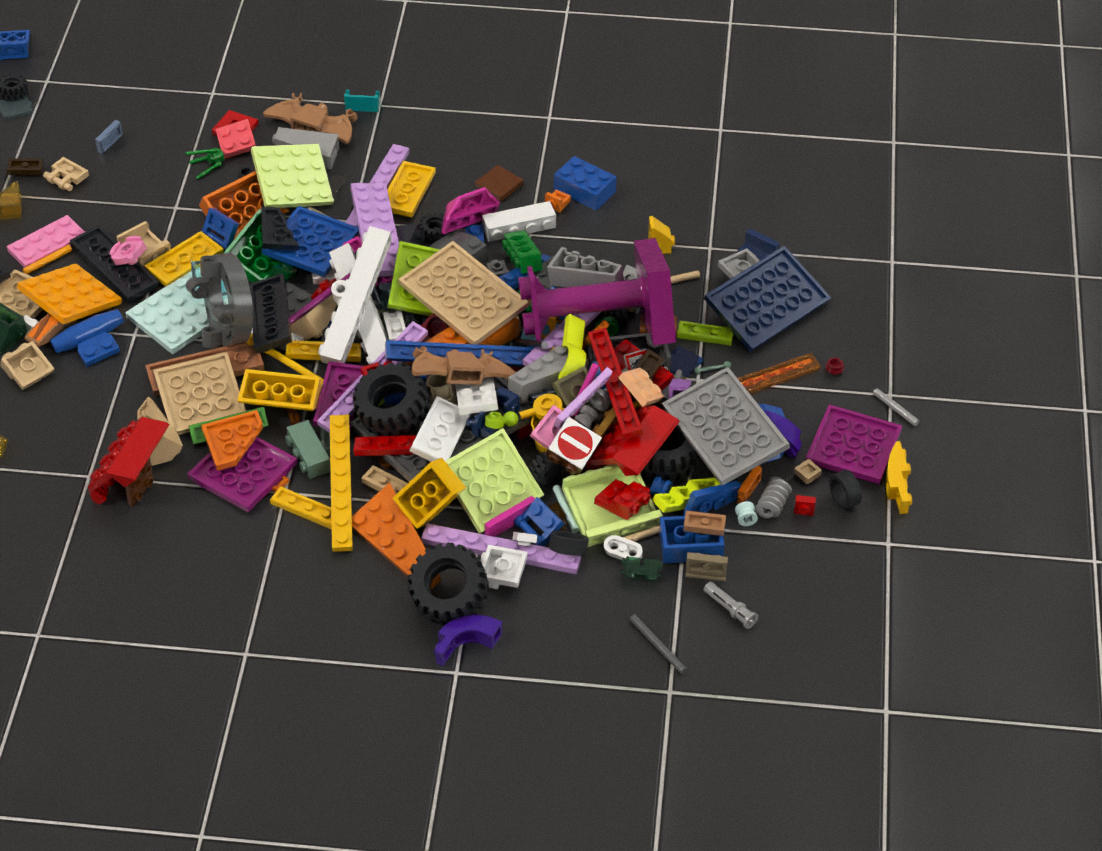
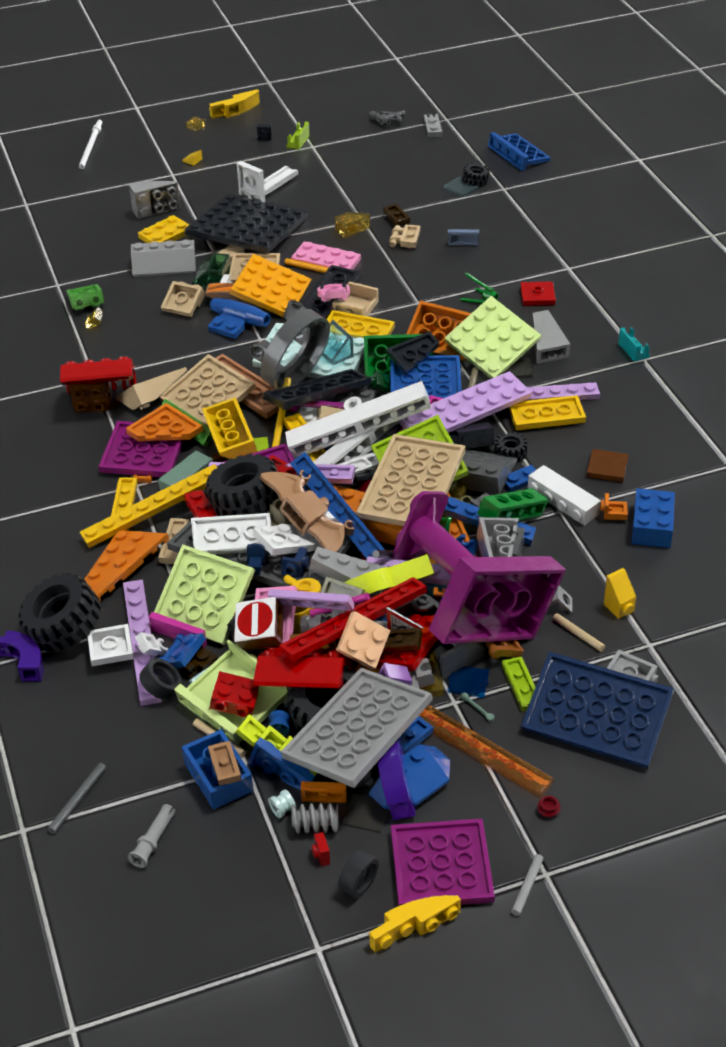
camera: 65 degrees right, 5 degrees down
(221, 224) = (403, 323): blue plate -> none
(235, 138) = (519, 297): coral plate -> none
(313, 118) = (582, 327): medium nougat torso -> none
(429, 492) = (156, 556): yellow brick -> none
(468, 209) = (537, 451): dark pink wedge -> none
(497, 421) = (262, 561): lime plate -> none
(624, 549) = (182, 724): white plate -> none
(633, 567) = (161, 747): clear green hinge -> none
(706, 566) = (189, 798): dark tan plate -> none
(759, 244) = (677, 679): dark blue panel -> none
(807, 471) = (375, 836): tan plate -> none

